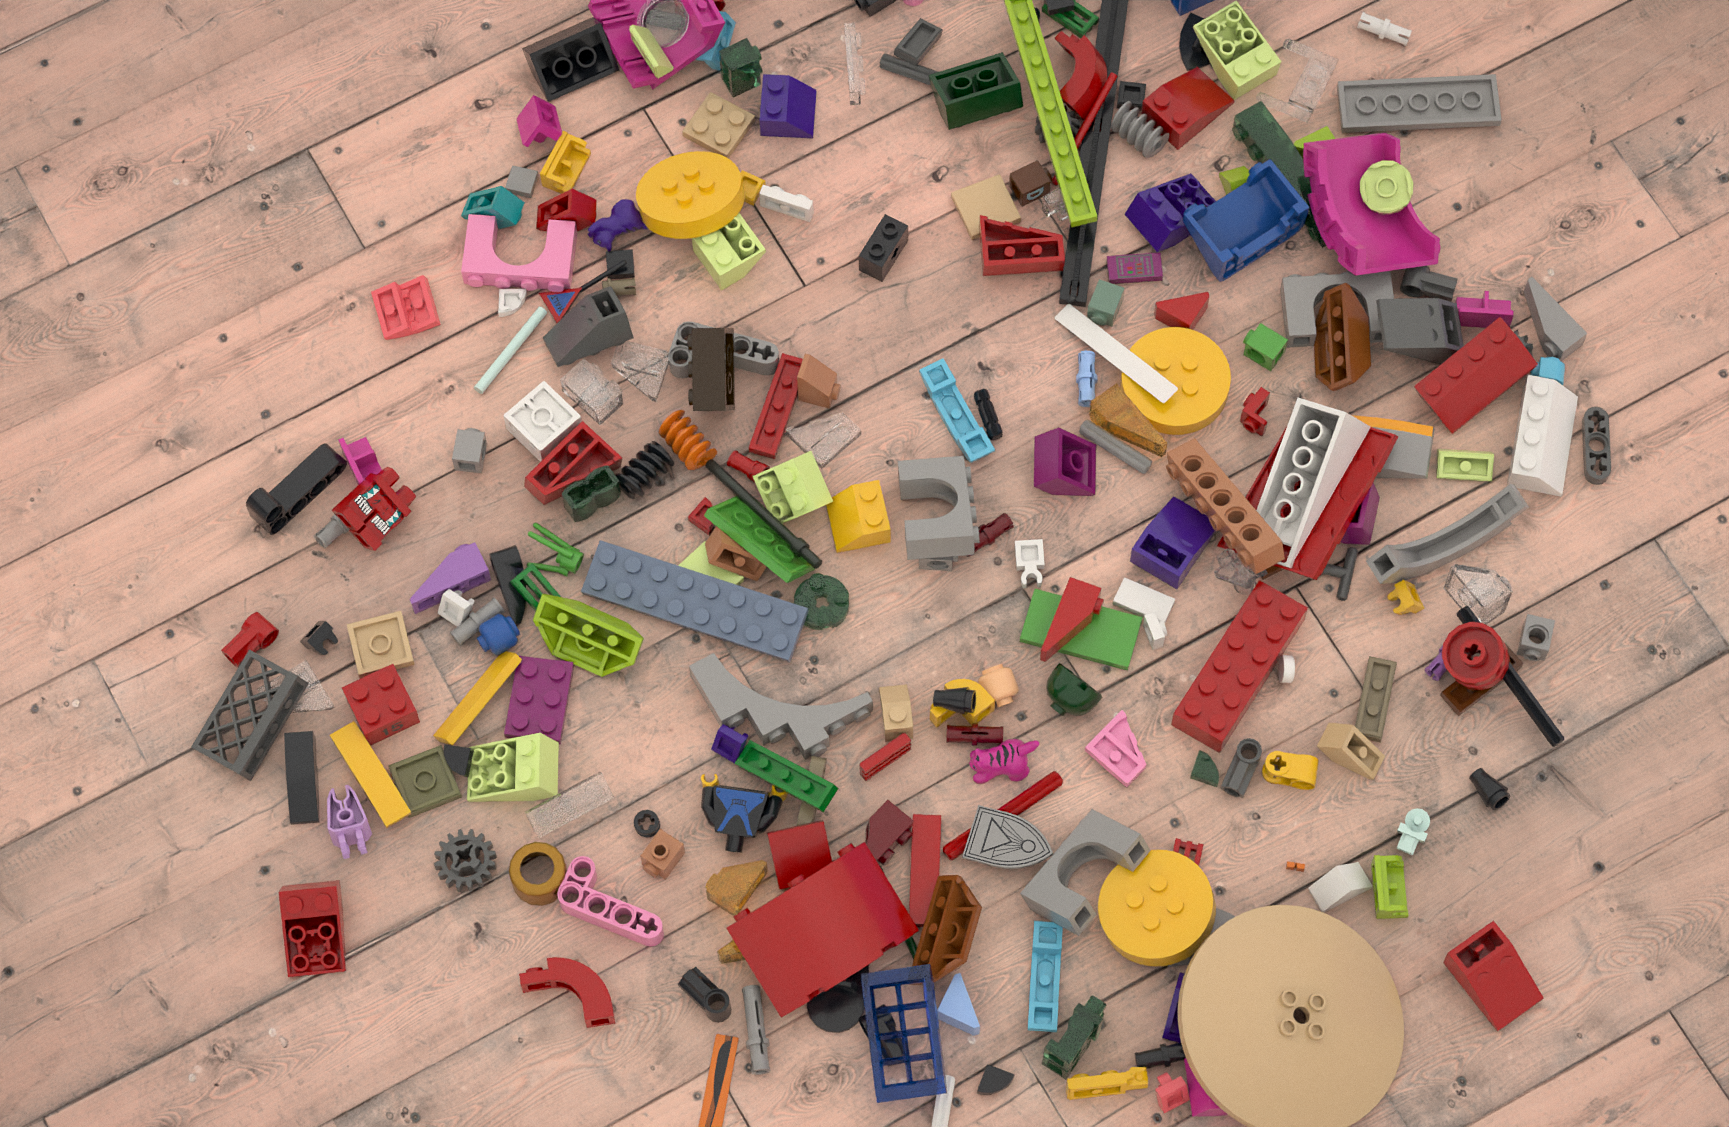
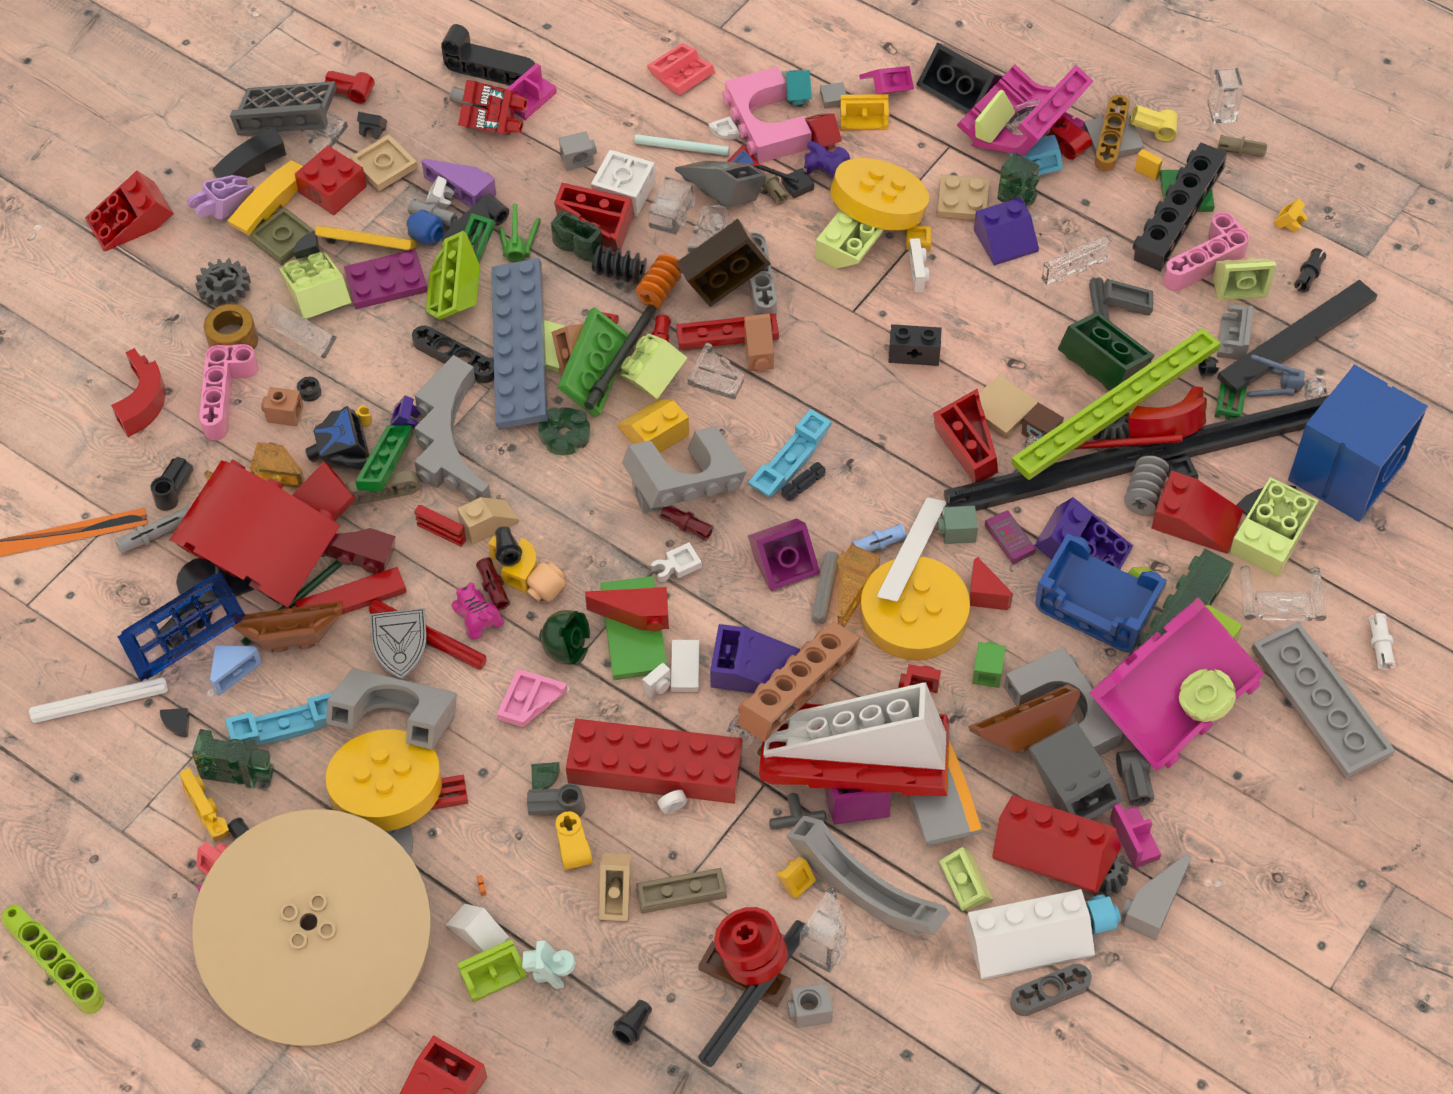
camera: 65 degrees right, 10 degrees down
(670, 665) = (458, 349): none -> black beam

